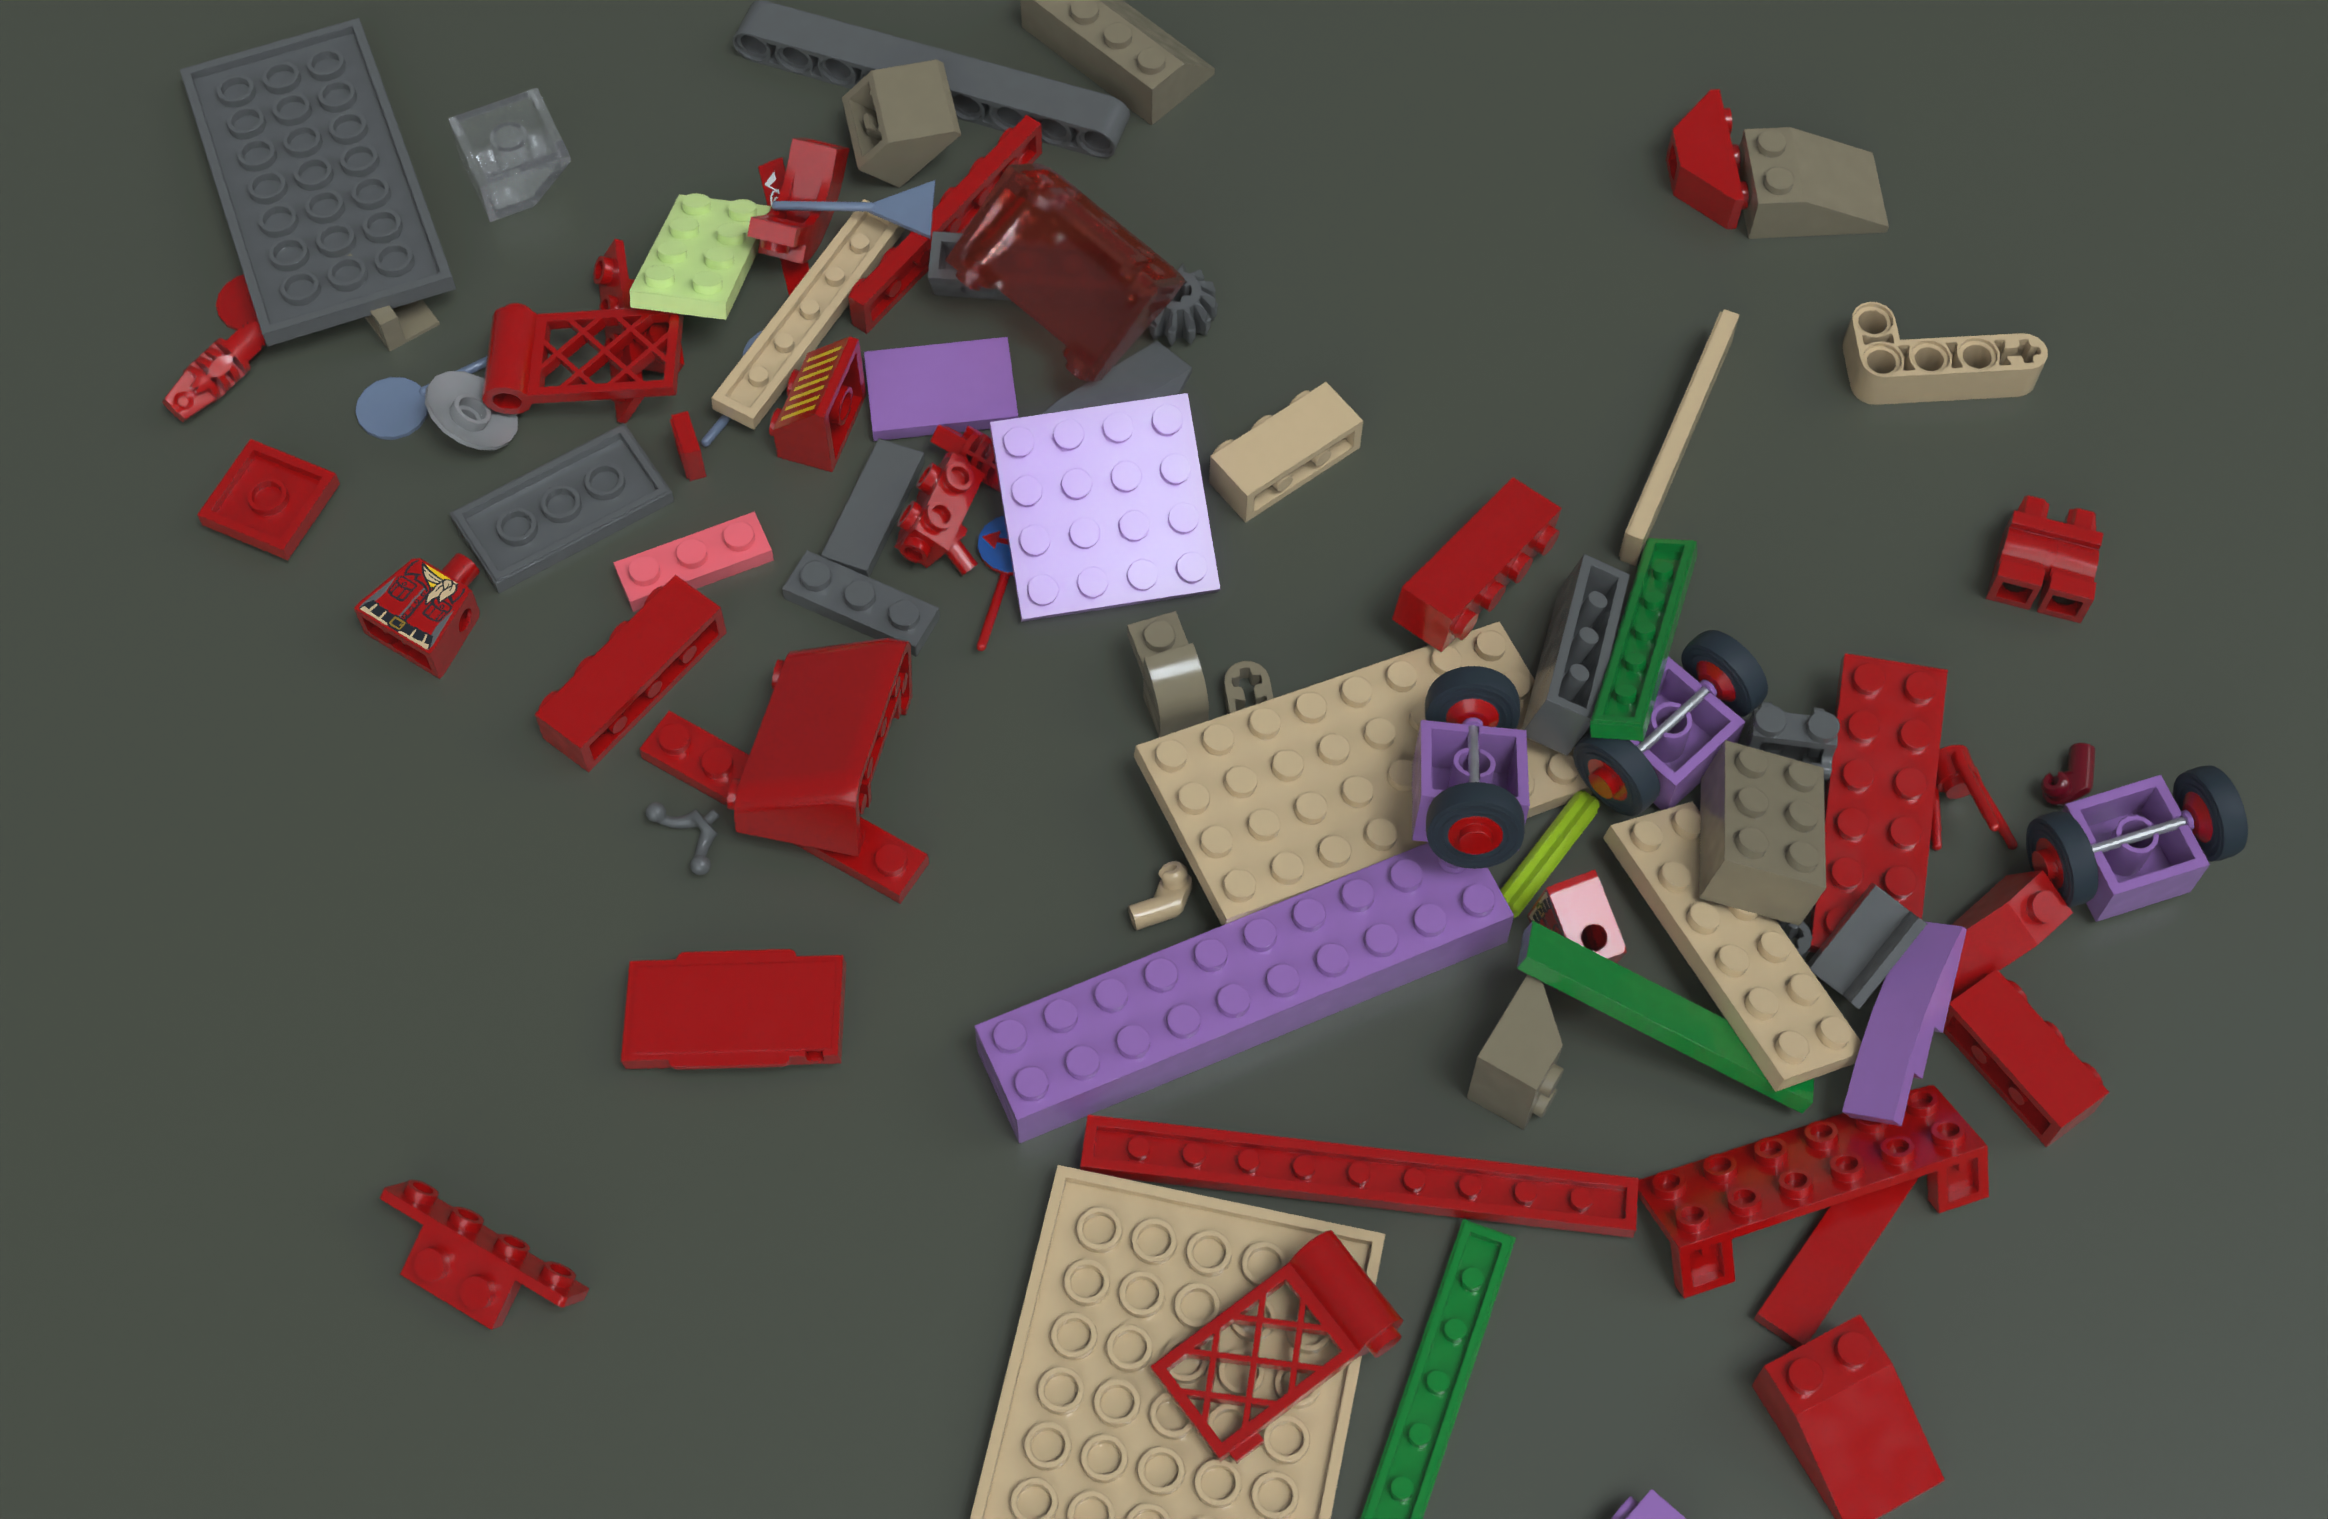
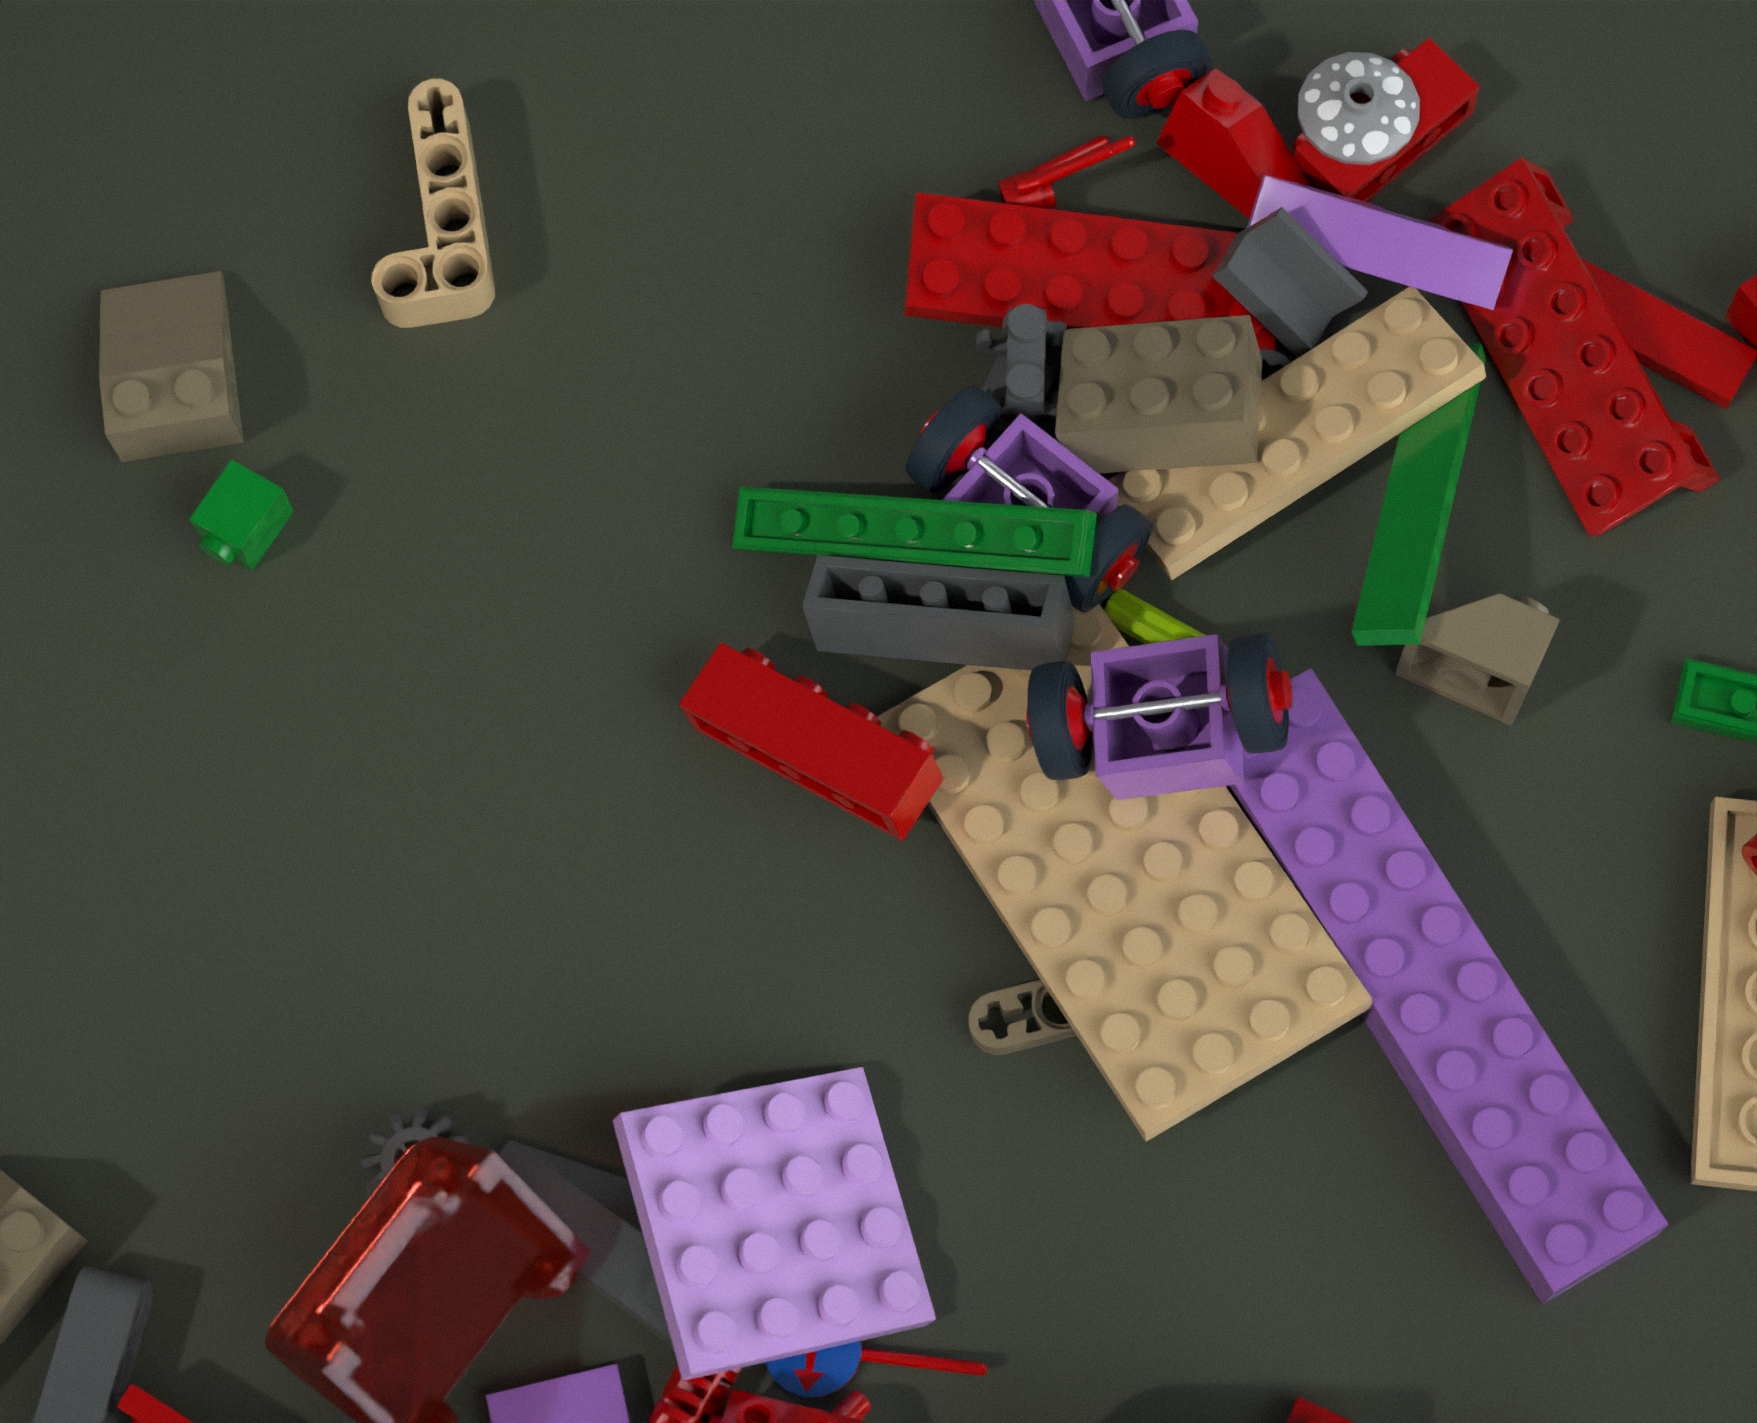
camera: 90 degrees left, 10 degrees up
(1168, 899) = (1314, 1090): tan arm -> none
(1171, 673) = (1016, 1109): dark tan brick -> none
(1285, 451) = (645, 1001): tan brick -> none
(1361, 1176) = (1643, 844): red plate -> none
(1582, 914) = (1306, 597): torso -> none
(1678, 437) = (580, 511): tan tile -> none
(1683, 223) = (240, 516): none -> green brick
(1706, 163) = (135, 490): red slope -> none
(2022, 1037) = (1353, 130): none -> light grey dish
(2049, 556) = (727, 93): red hips -> none
(2074, 782) = (1016, 71): dark red arm -> none

